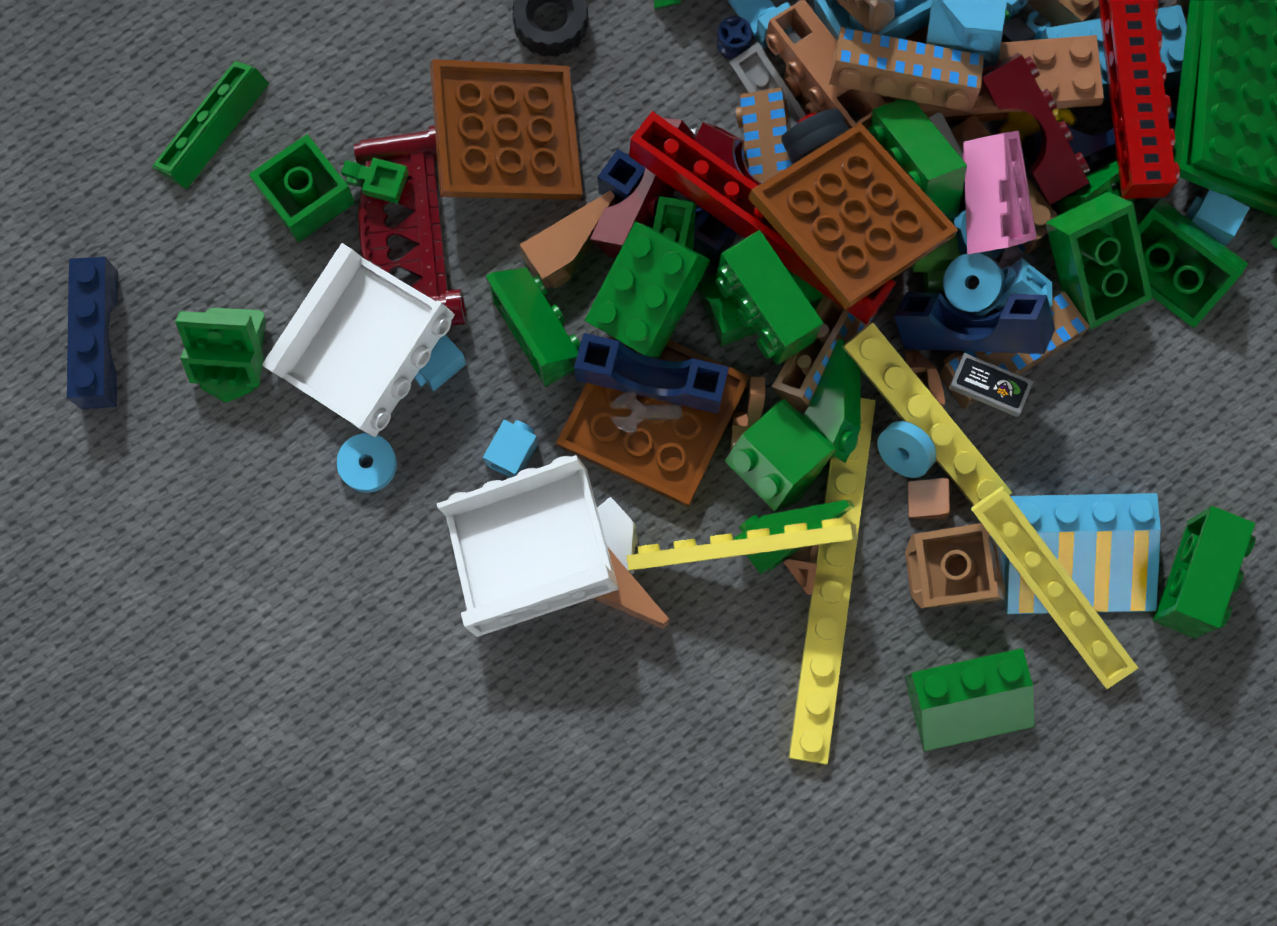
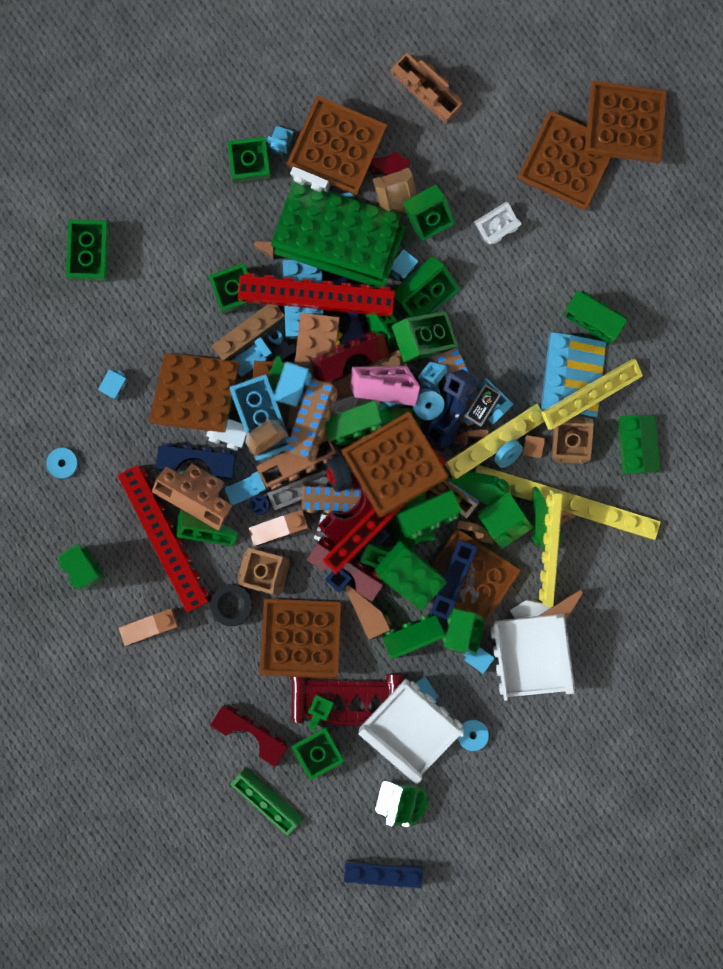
camera: 80 degrees left, 10 degrees up
(307, 109) = (270, 747): none -> dark red arch
(553, 402) = (464, 632): none -> green brick
(616, 61) = (263, 571): none -> medium nougat slope
(701, 77) = (278, 528): none -> slope
(993, 424) = (502, 405): none -> medium azure bracket

